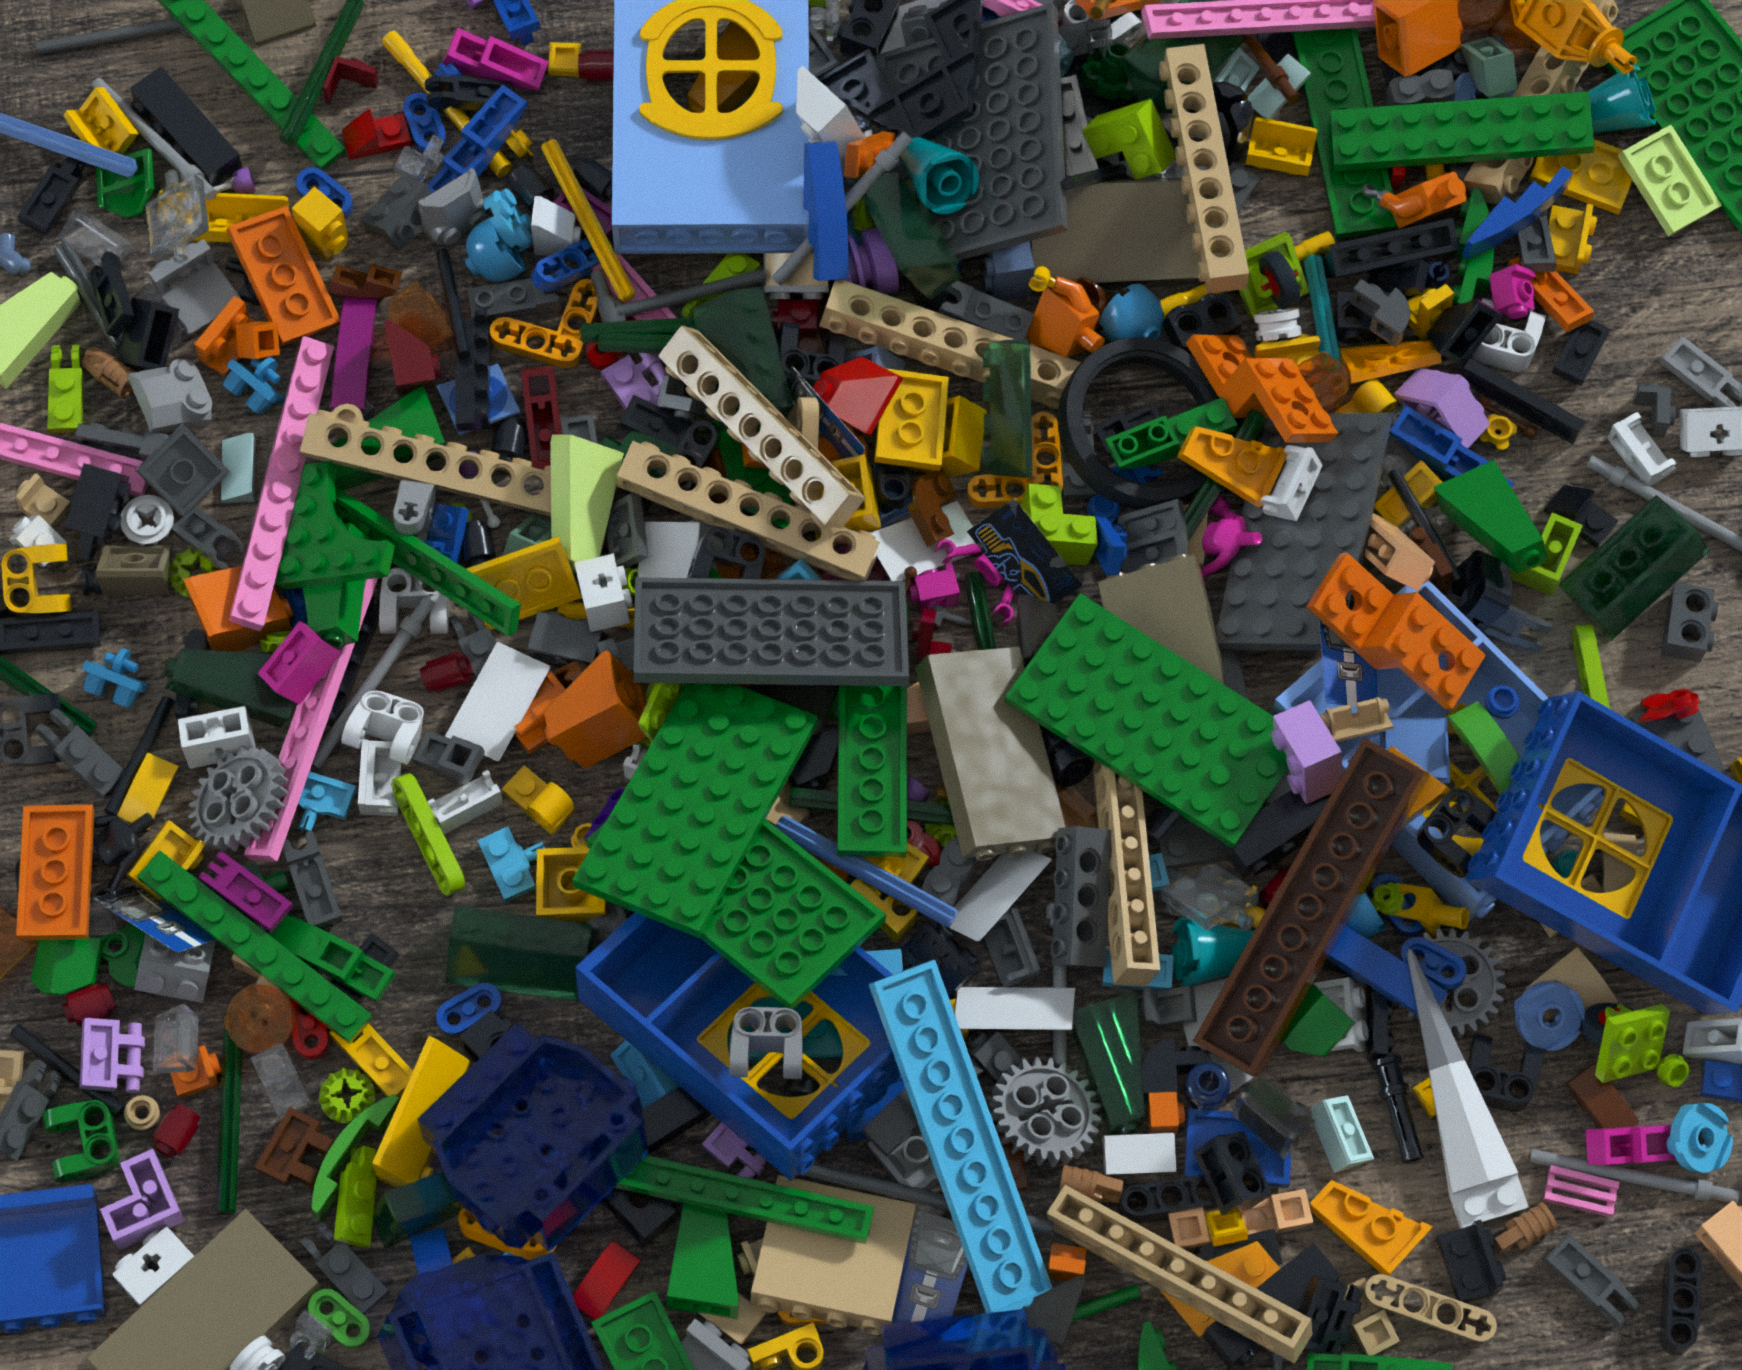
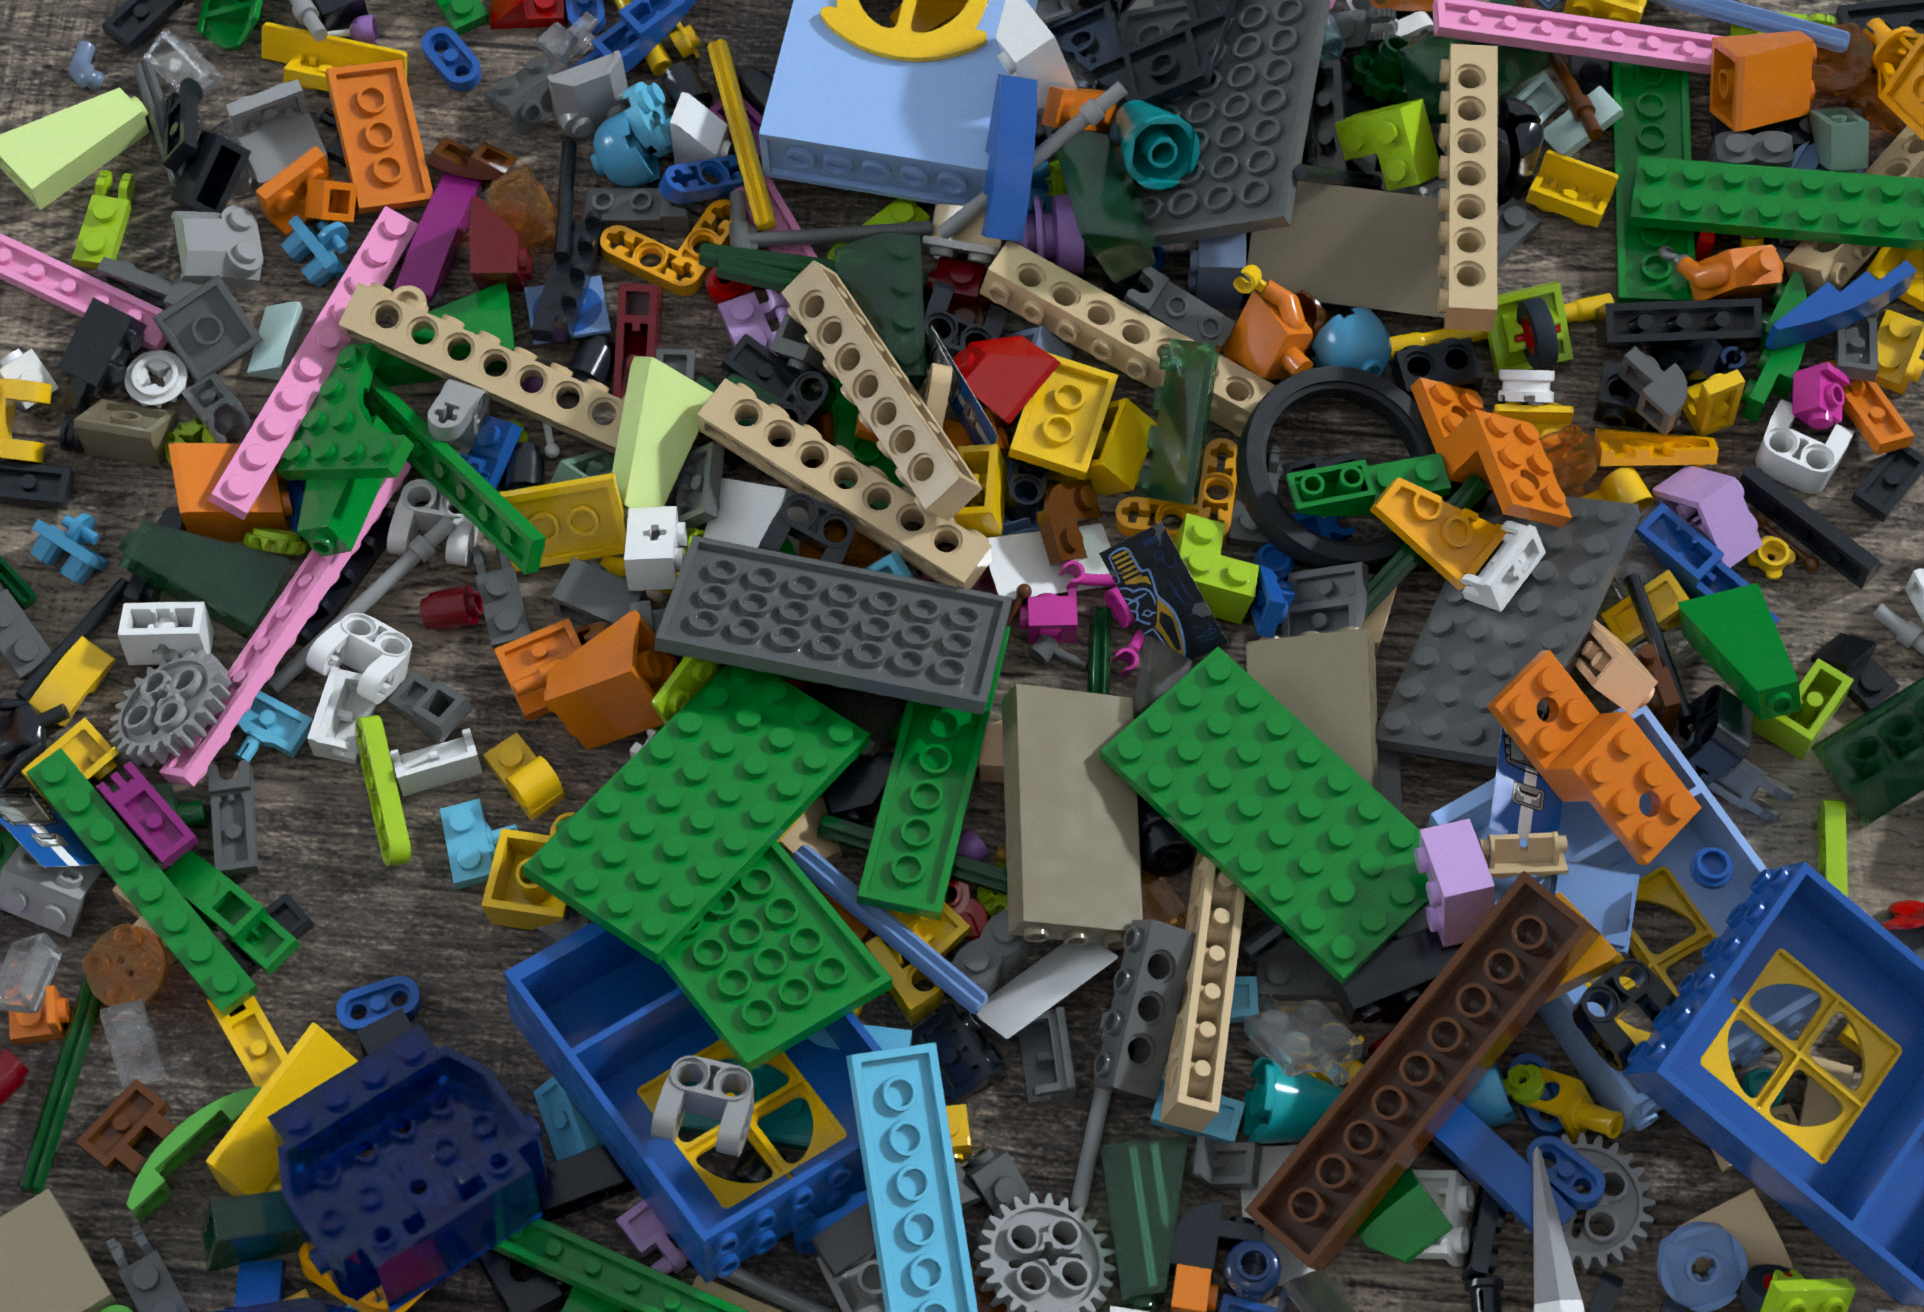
camera: 15 degrees right, 5 degrees down
(38, 499) = (40, 333): tan bracket -> none
(108, 371) = (156, 207): medium nougat hinge -> none
(176, 216) = (274, 50): clear plate -> none
(298, 663) = (277, 564): dark pink panel -> none
(306, 1028) = (178, 991): red plate -> none
(321, 224) = (435, 86): yellow brick -> none
(333, 1086) = (224, 1064): lime gear -> none
(356, 1199) = (184, 1207): lime hinge -> none
(498, 700) = (504, 651): white sticker -> none
(517, 952) = (447, 946): clear green slope -> none
(923, 632) = (1025, 663): dark red bracket -> none
(1015, 1008) = (1034, 1129): white sticker -> none
(1225, 536) = (1411, 617): dark pink piece -> none
(1321, 305) = (1584, 374): teal axle -> none
(1463, 329) = (1749, 427): black slope -> none
(1487, 742) = (1682, 912): bright green slope -> none

